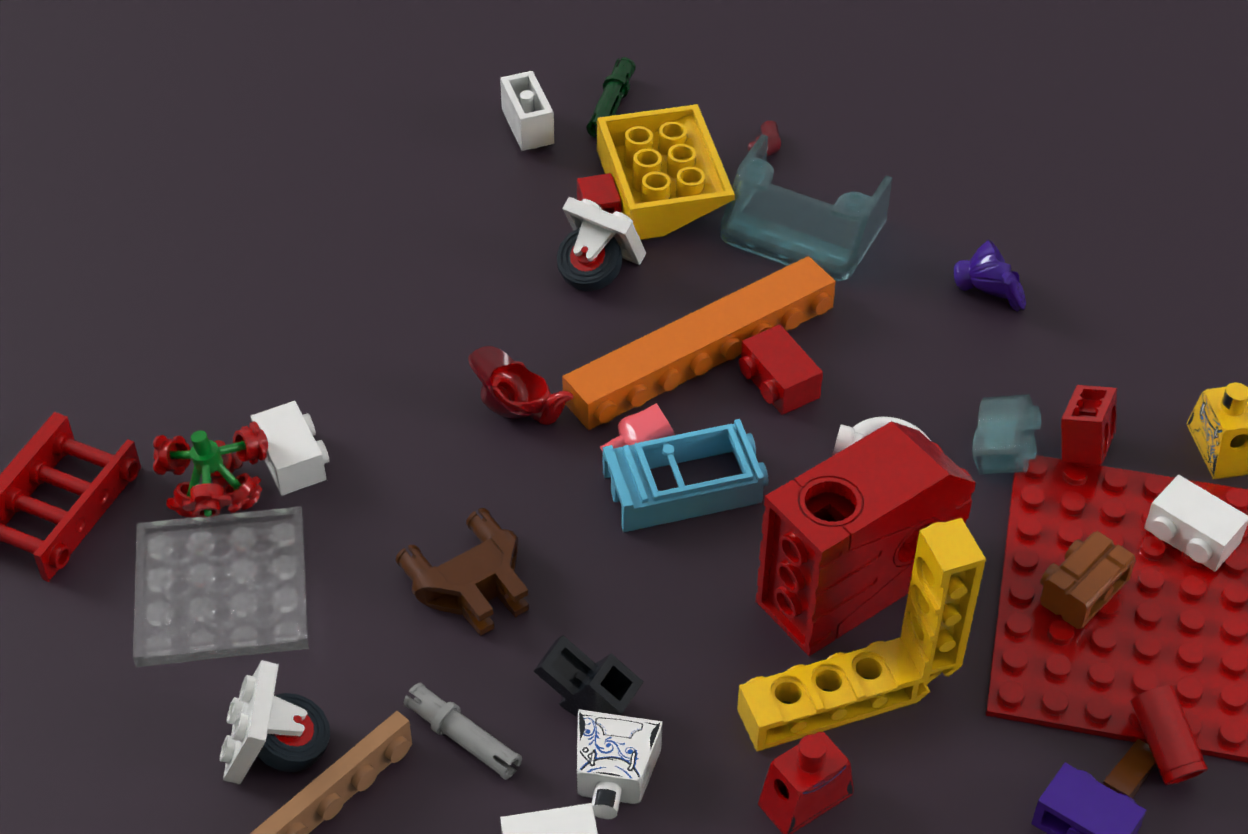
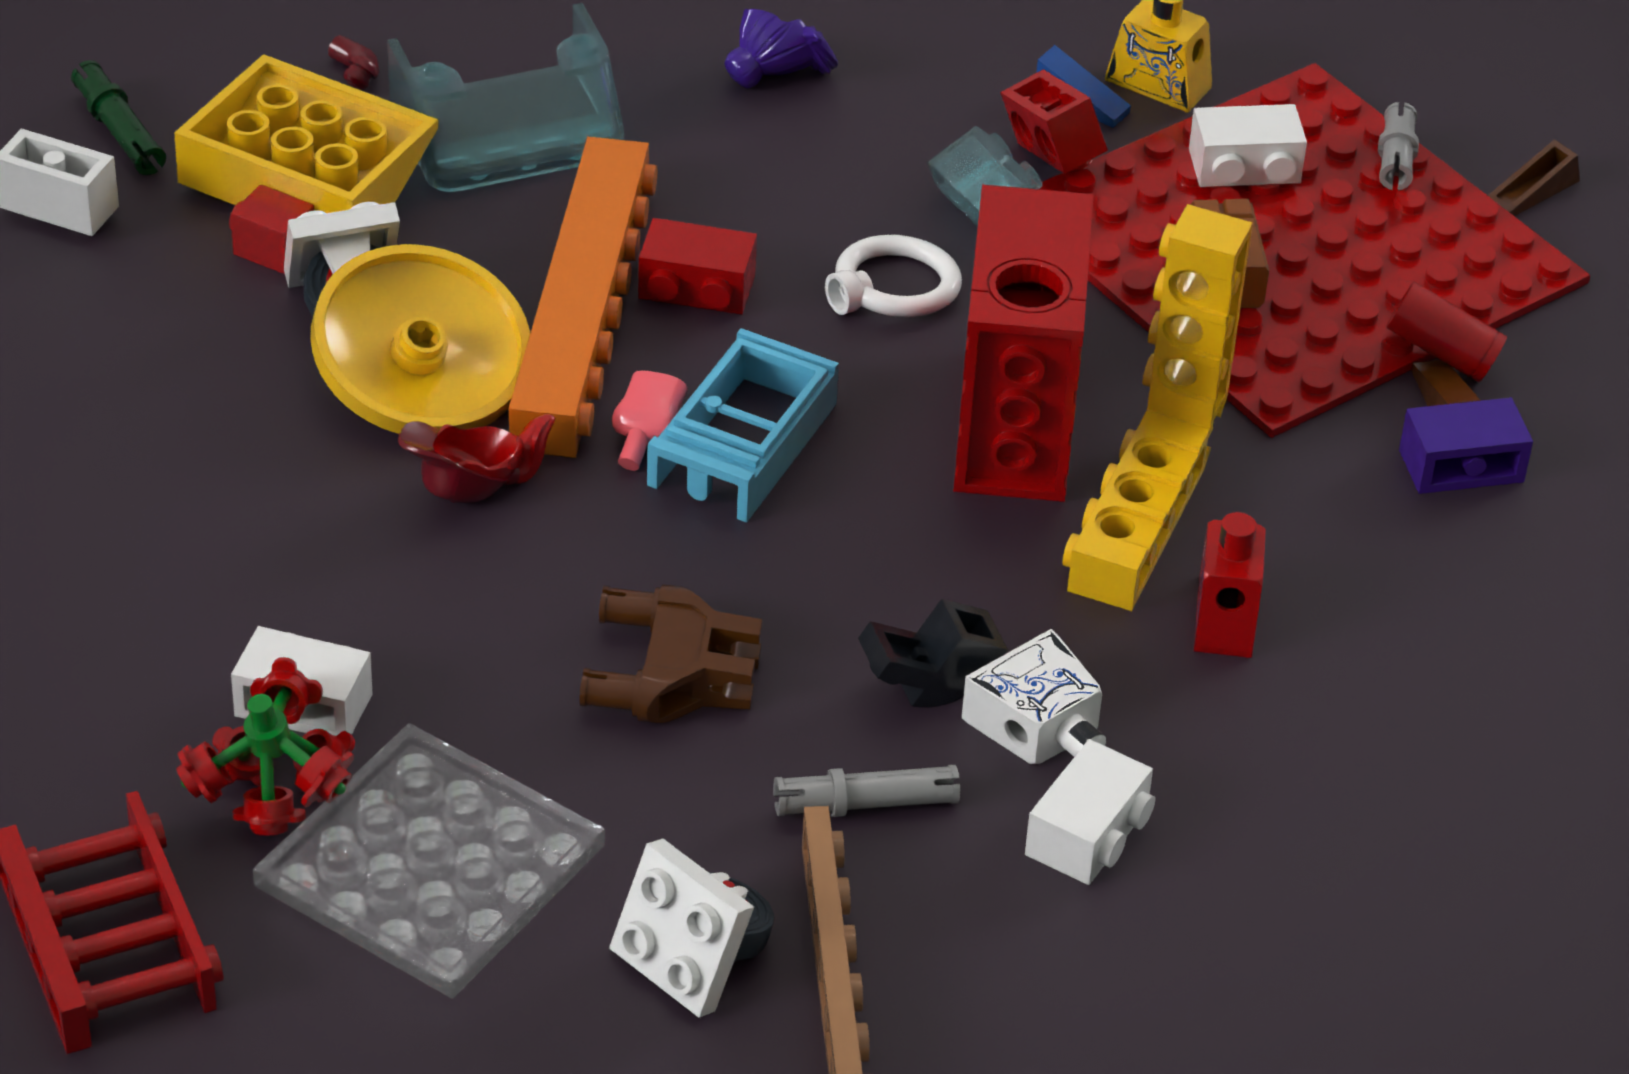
camera: 50 degrees left, 5 degrees down
(574, 305) = (419, 338): none -> yellow dish
(1153, 417) = (1107, 104): none -> blue piece

